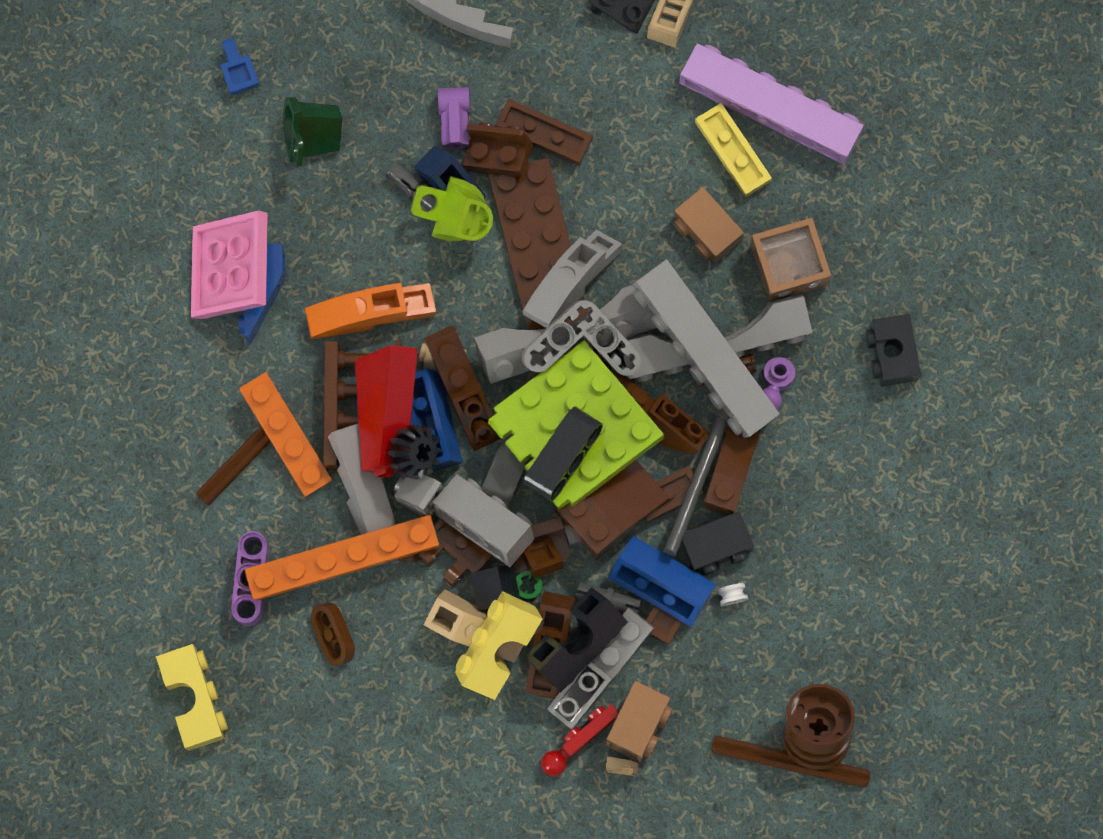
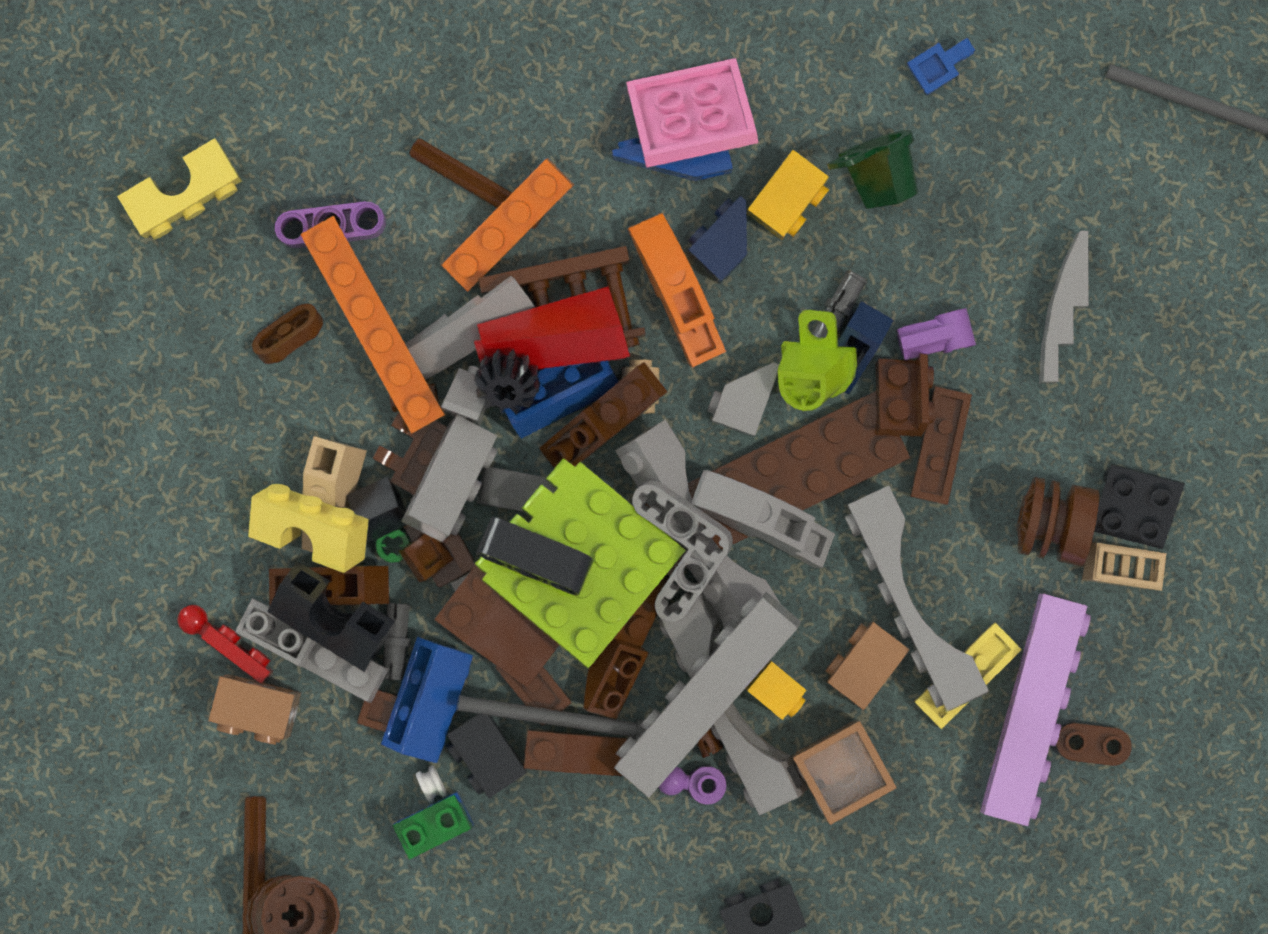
camera: 70 degrees right, 10 degrees up
(315, 207) = (788, 195): none -> yellow brick
(341, 265) = (724, 243): none -> dark blue slope
(473, 276) = (744, 400): none -> light grey slope
(614, 765) = (205, 693): tan tile -> none
(624, 50) = (1058, 521): none -> reddish brown wheel
(716, 294) = (777, 691): none -> yellow brick
(726, 158) = (949, 669): none -> light grey arch
(769, 601) = (433, 825): none -> green hips
(809, 64) = (1093, 744): none -> reddish brown plate

